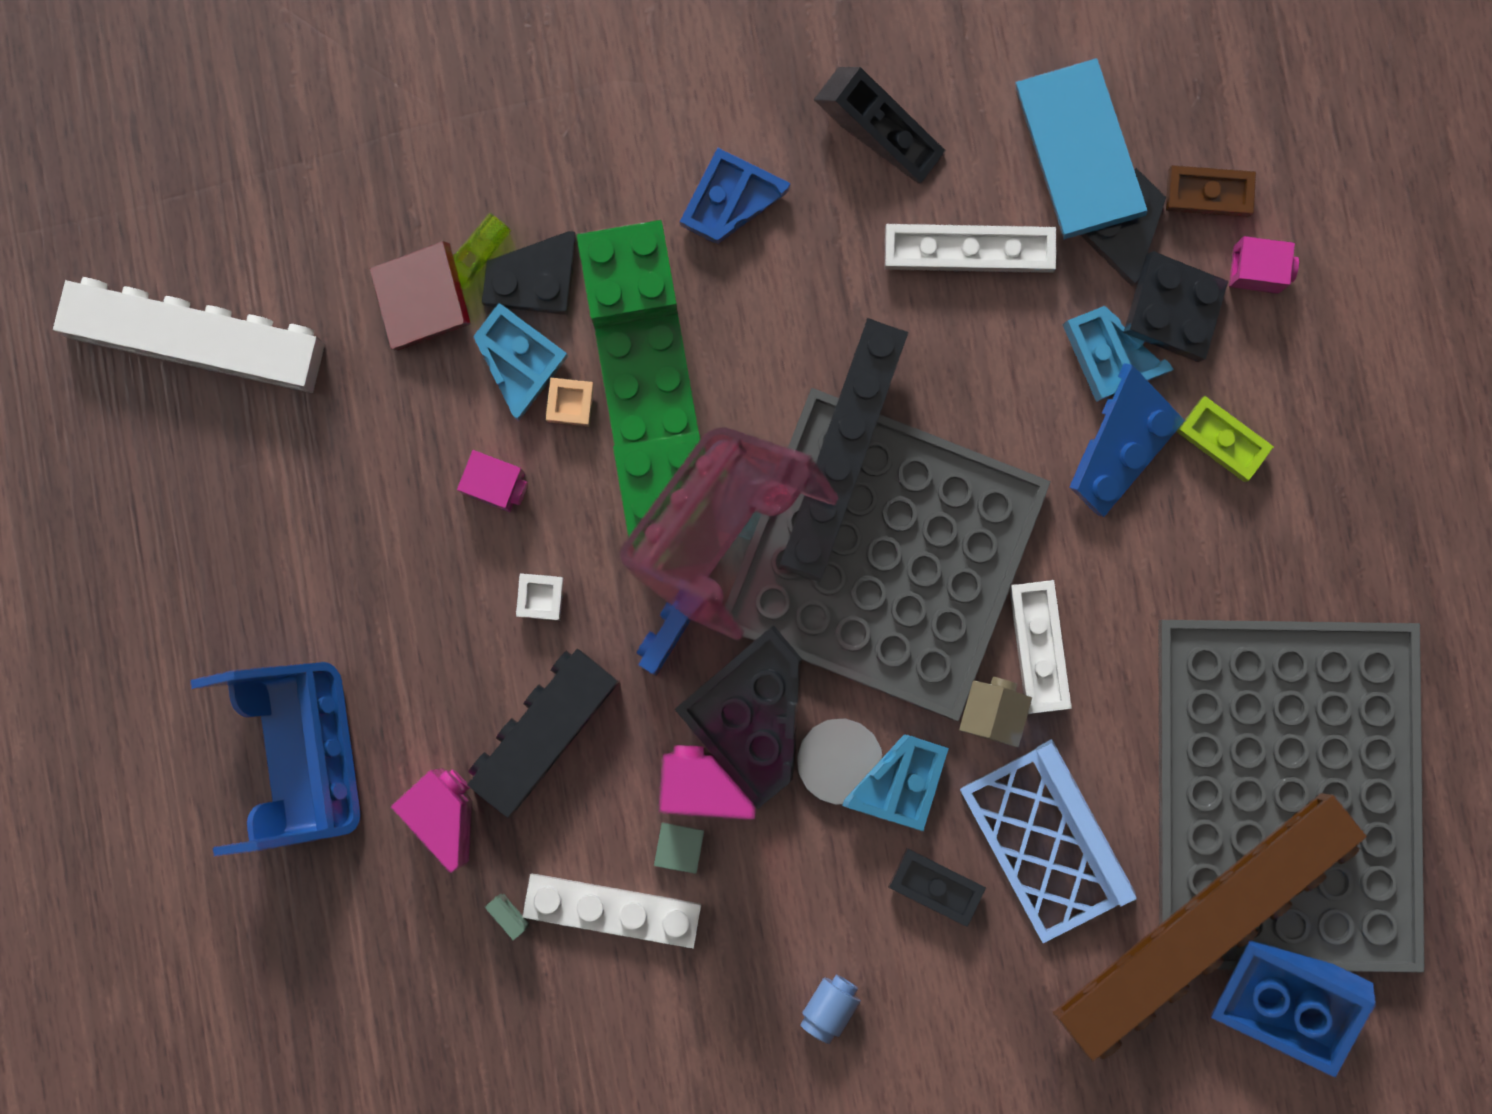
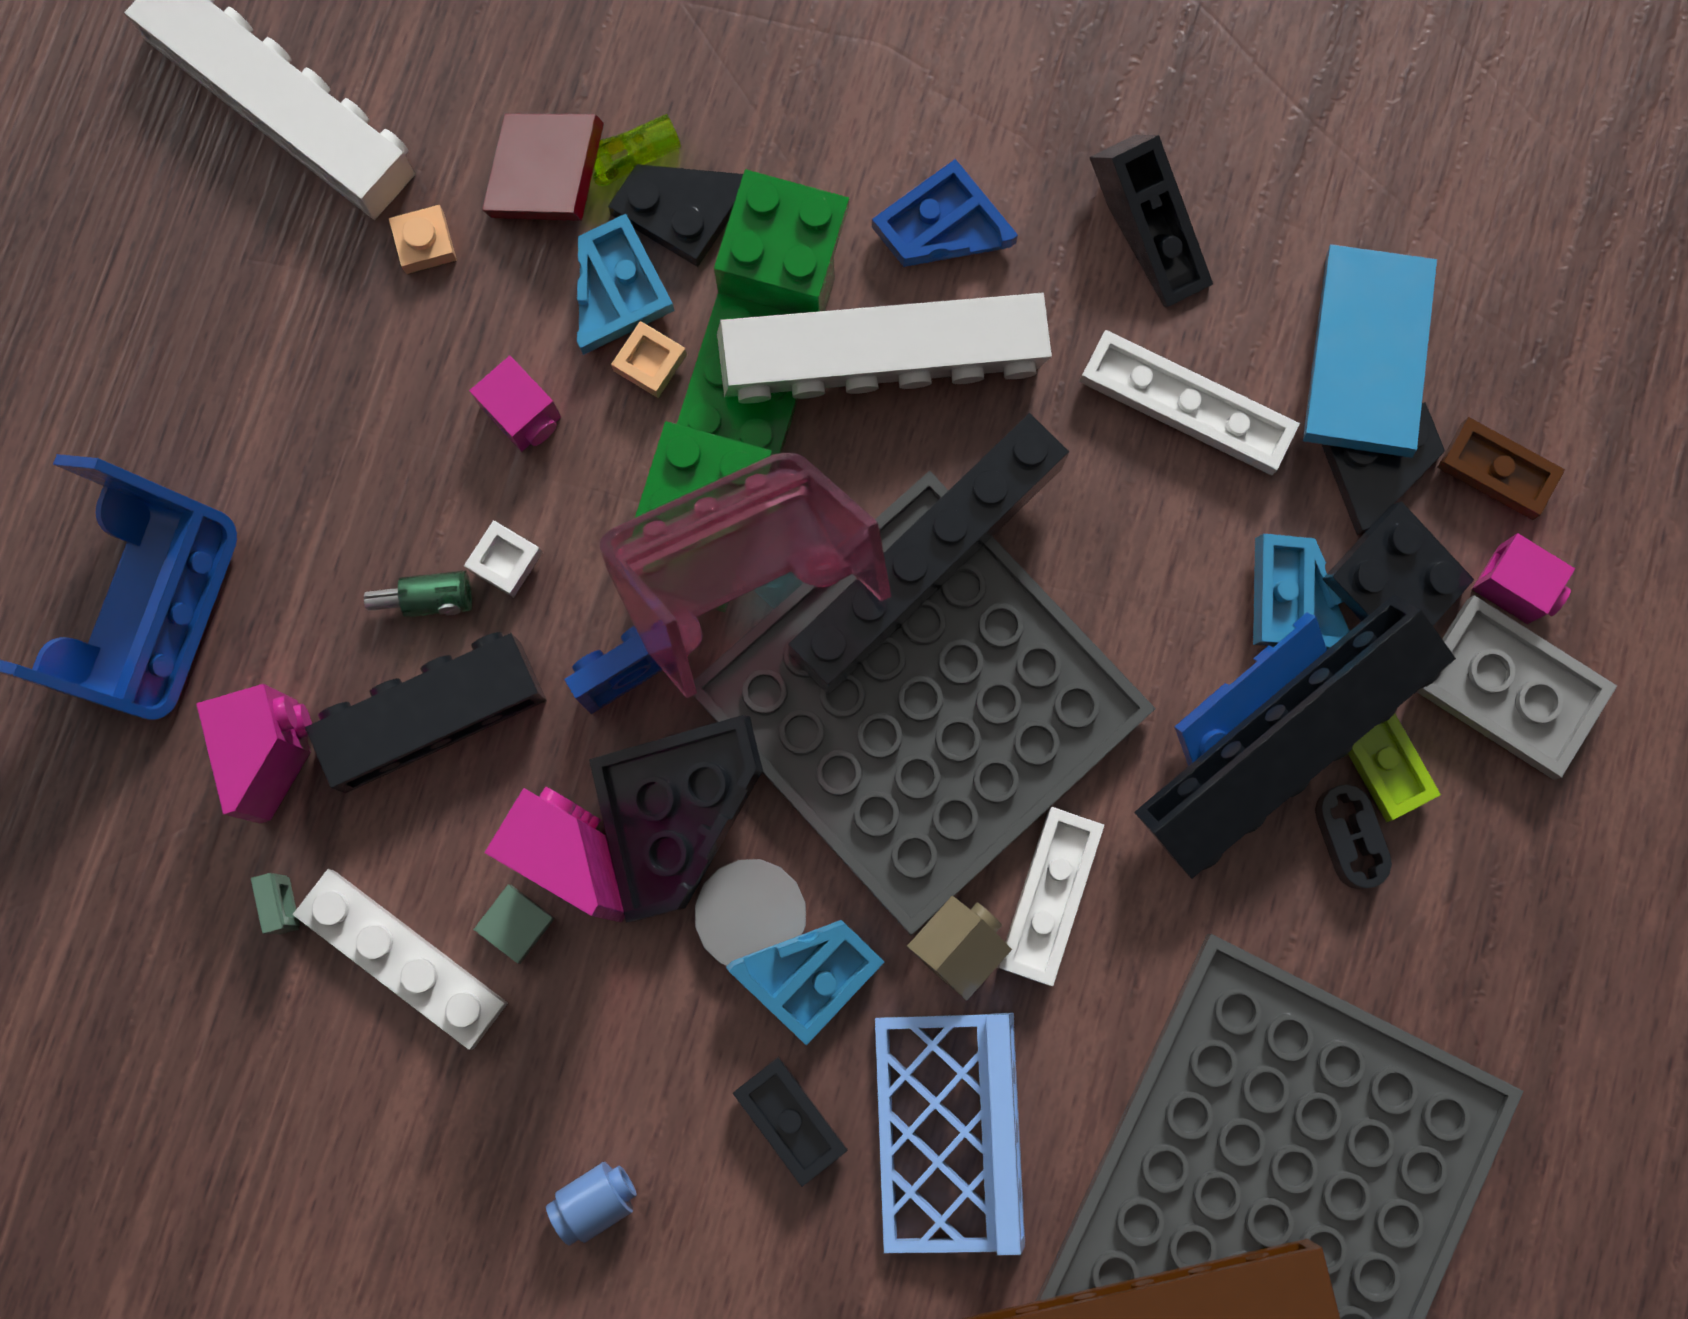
camera: 30 degrees right, 5 degrees down
(357, 391) = (422, 239): none -> light nougat plate
(497, 650) = (425, 595): none -> clear green piece
(736, 313) = (883, 346): none -> white brick
(1156, 455) = (1296, 735): none -> black brick
(1234, 497) = (1365, 831): none -> black beam
(1289, 345) = (1518, 688): none -> light grey plate

